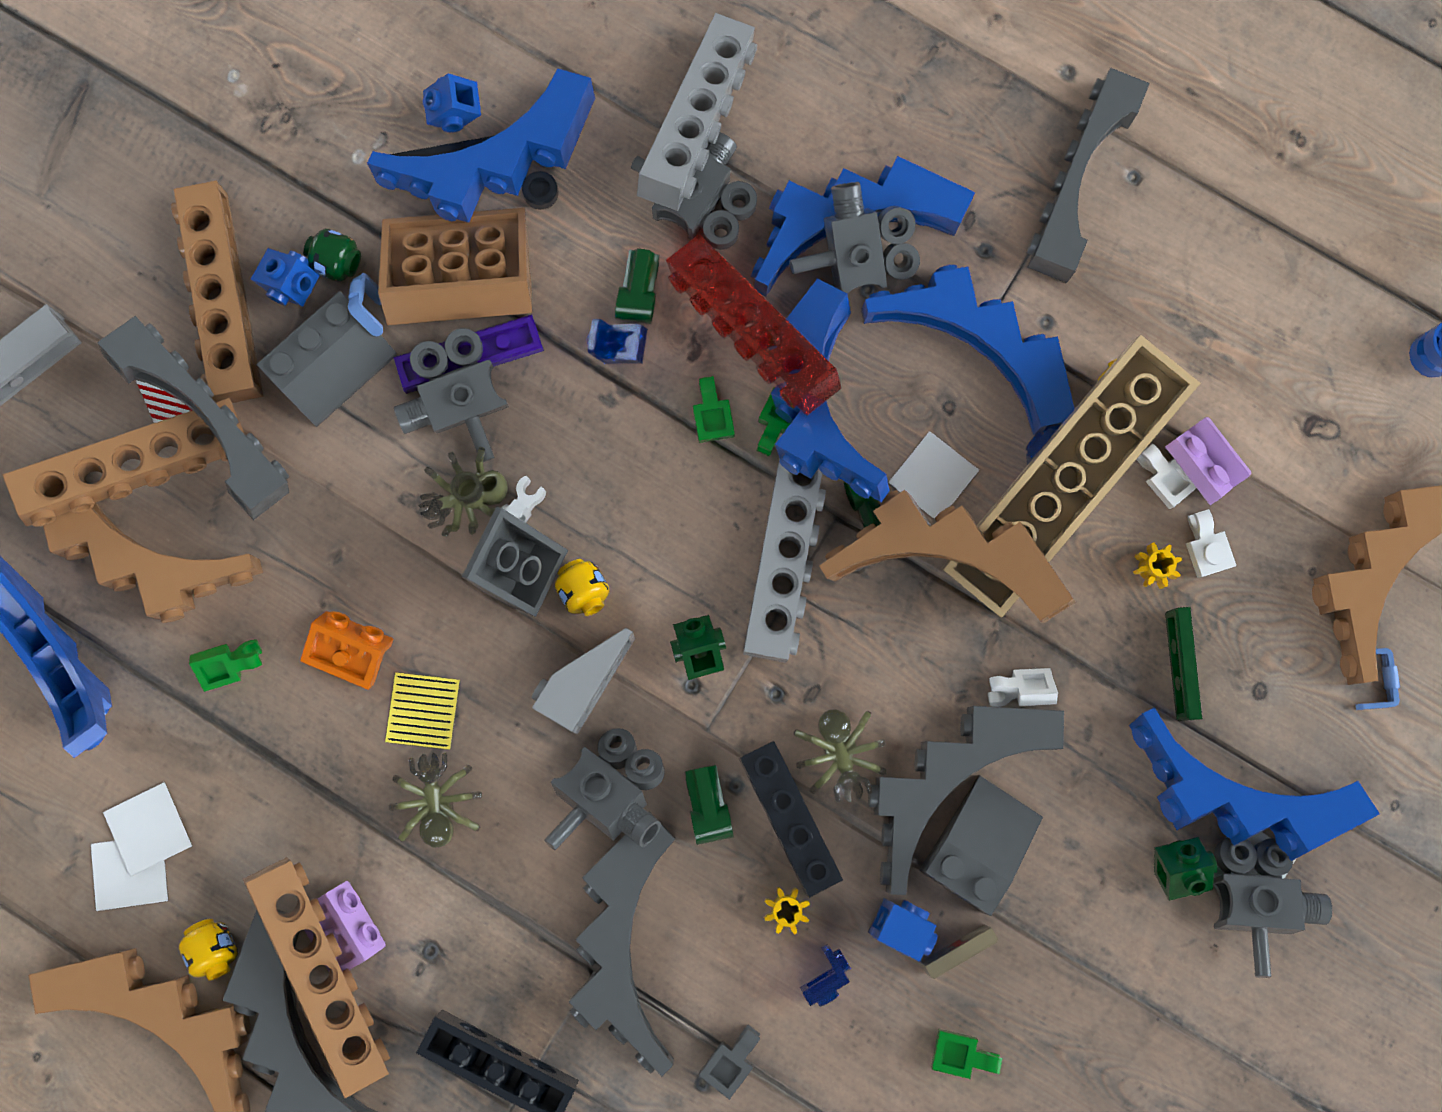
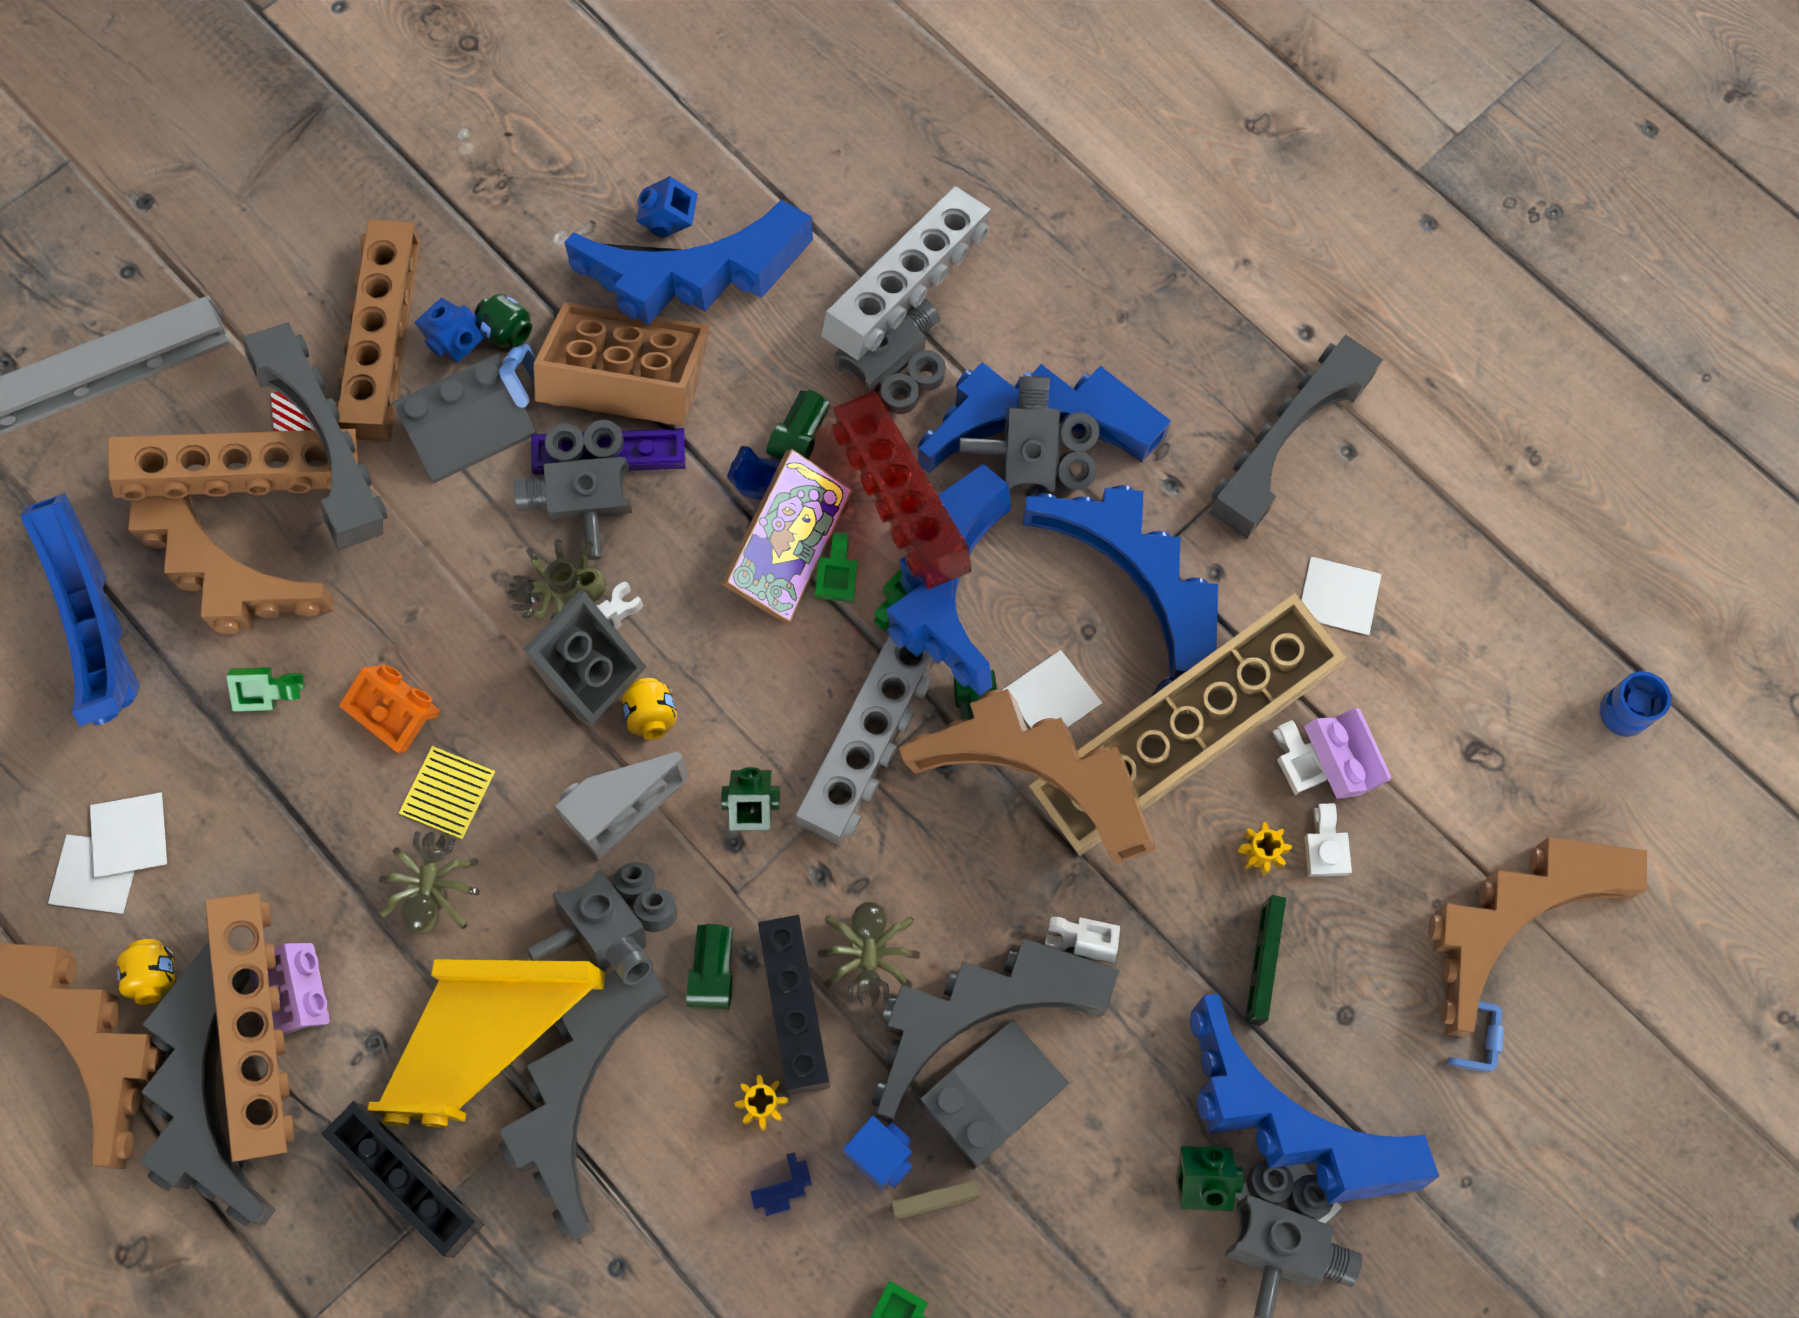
camera: 20 degrees right, 10 degrees down
(518, 921) = (474, 1029): none -> yellow piece
(540, 190) = (730, 313): black tile -> none
(658, 393) = (787, 536): none -> tile
(728, 1065) = (649, 1253): dark grey plate -> none
(1161, 314) = (1341, 595): none -> white sticker

